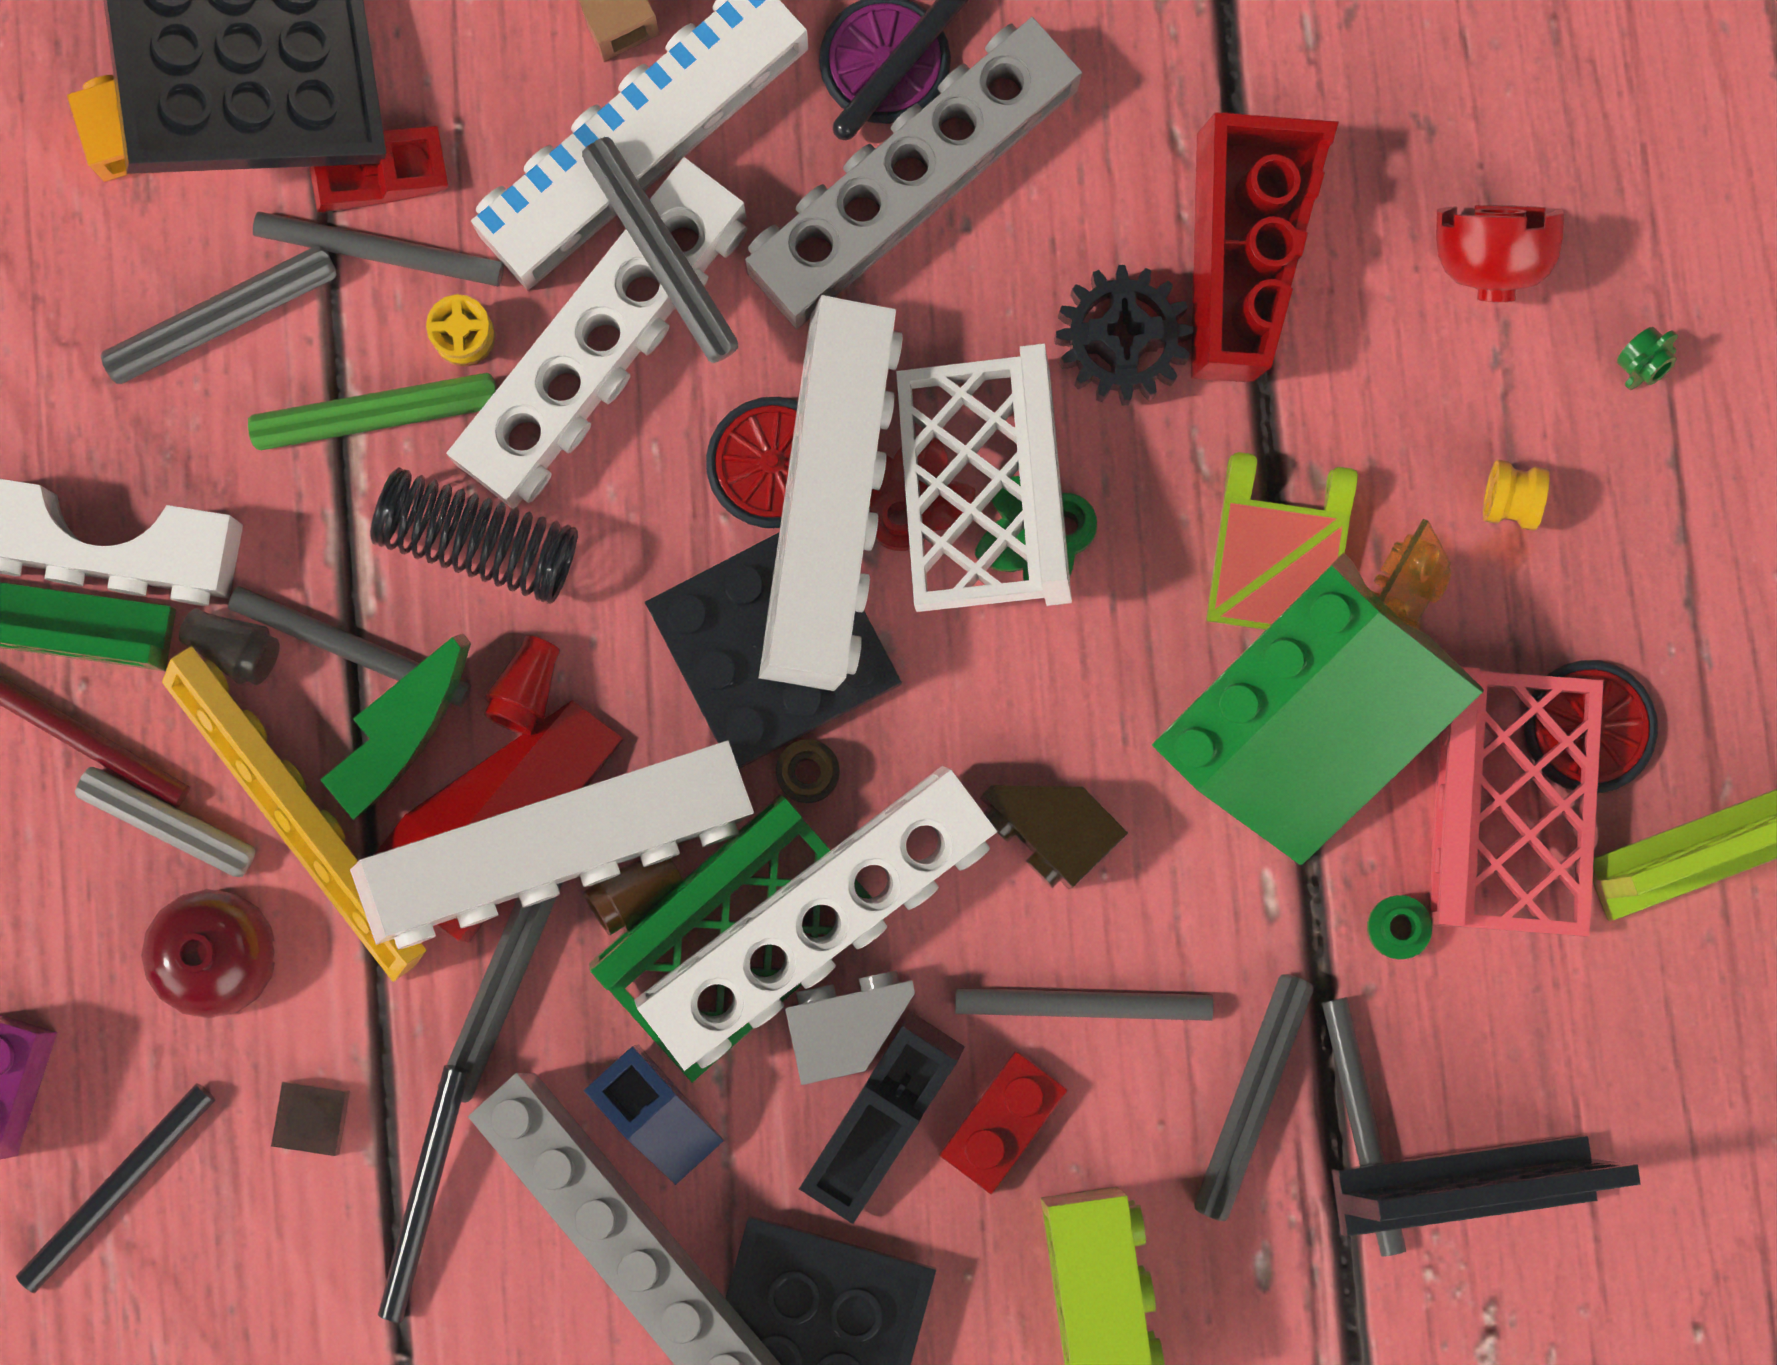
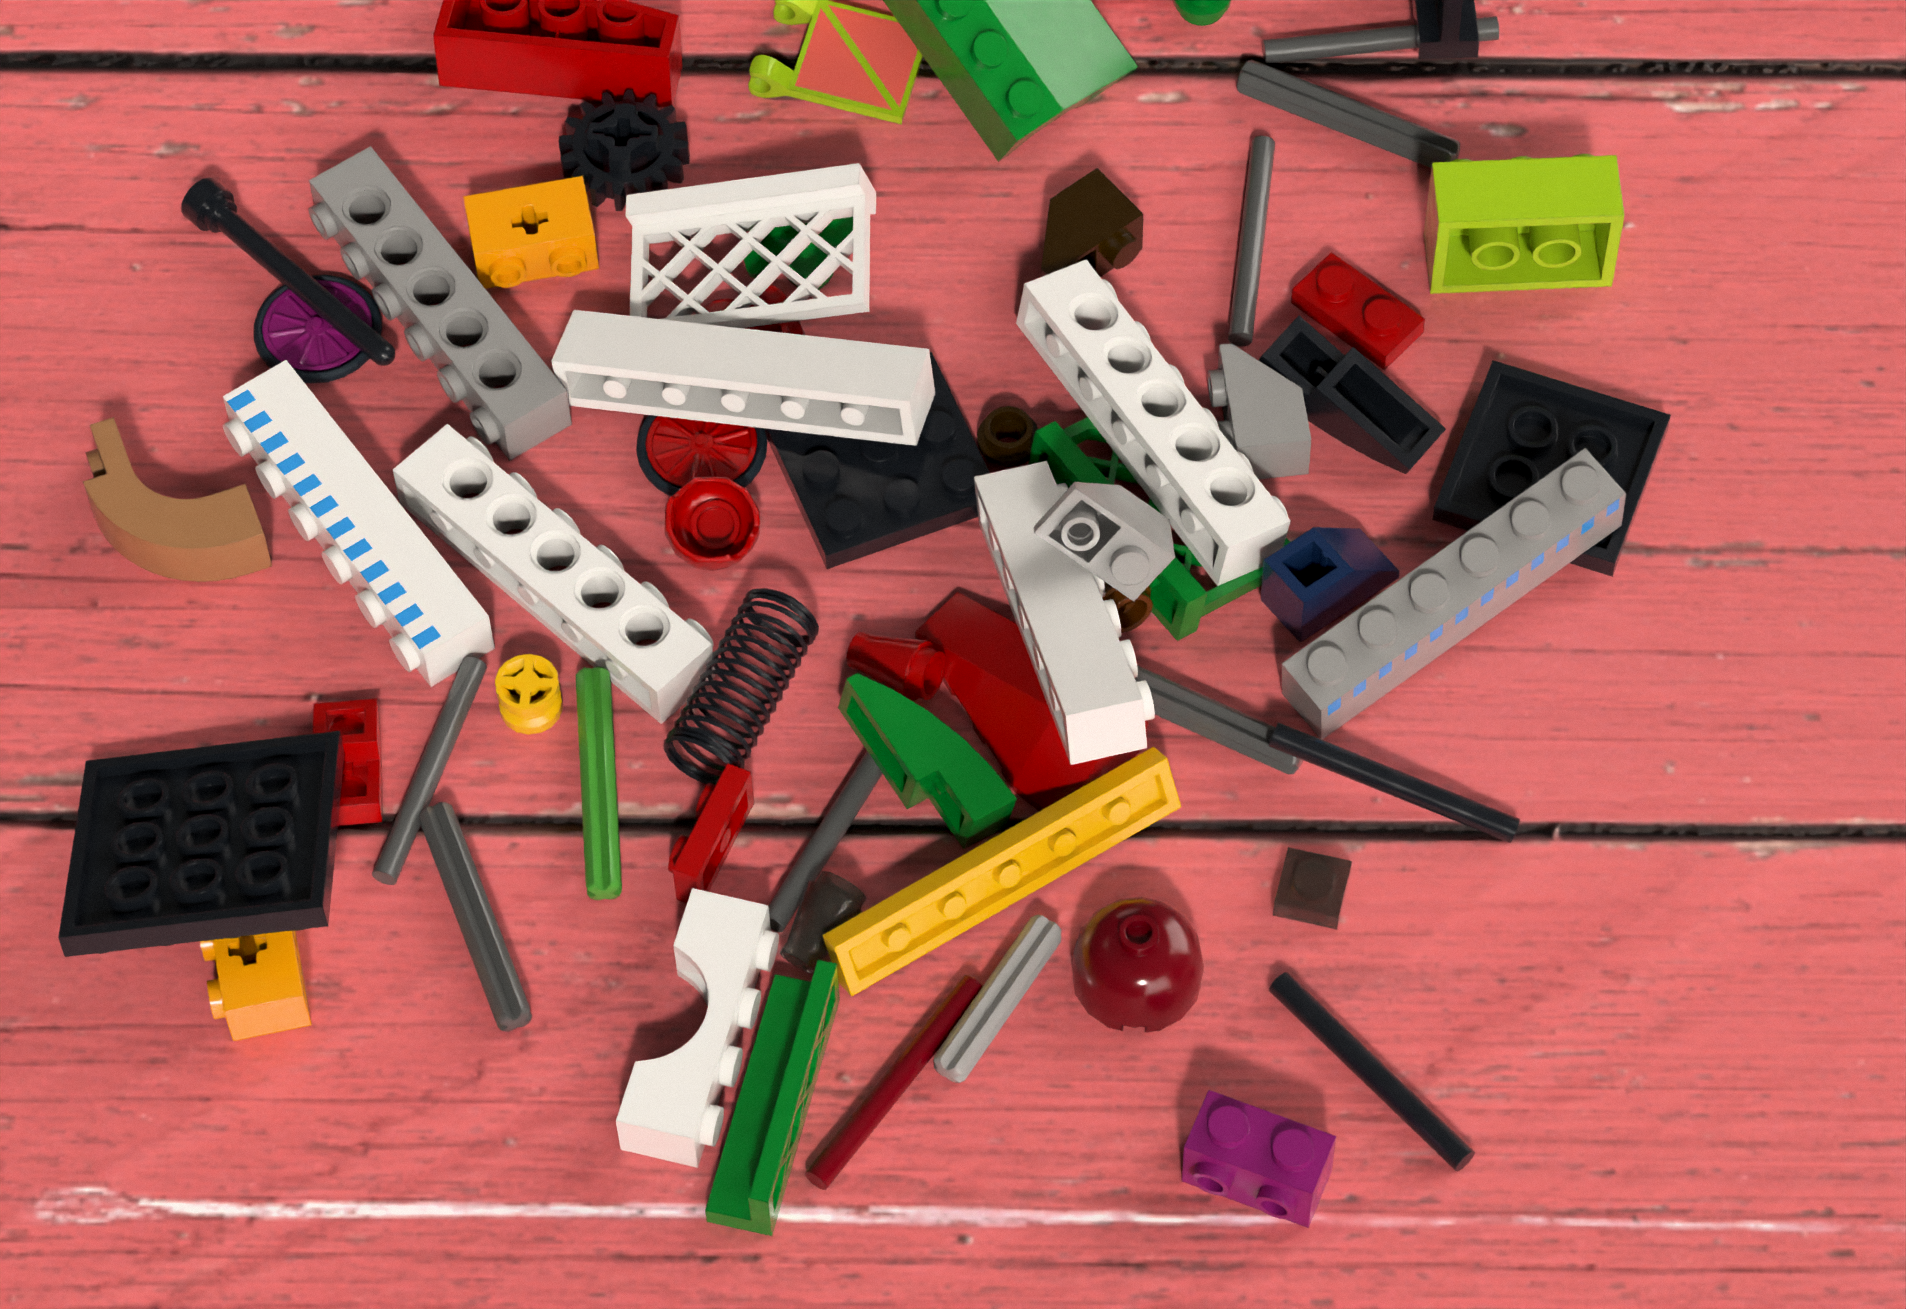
camera: 80 degrees left, 25 degrees down
(288, 517) = (720, 817): none -> red plate
(619, 891) = (1110, 535): none -> light grey slope
(660, 249) = (484, 486): dark grey axle -> none
(661, 482) = (712, 522): none -> red hair
(1010, 218) = (531, 232): none -> light orange brick

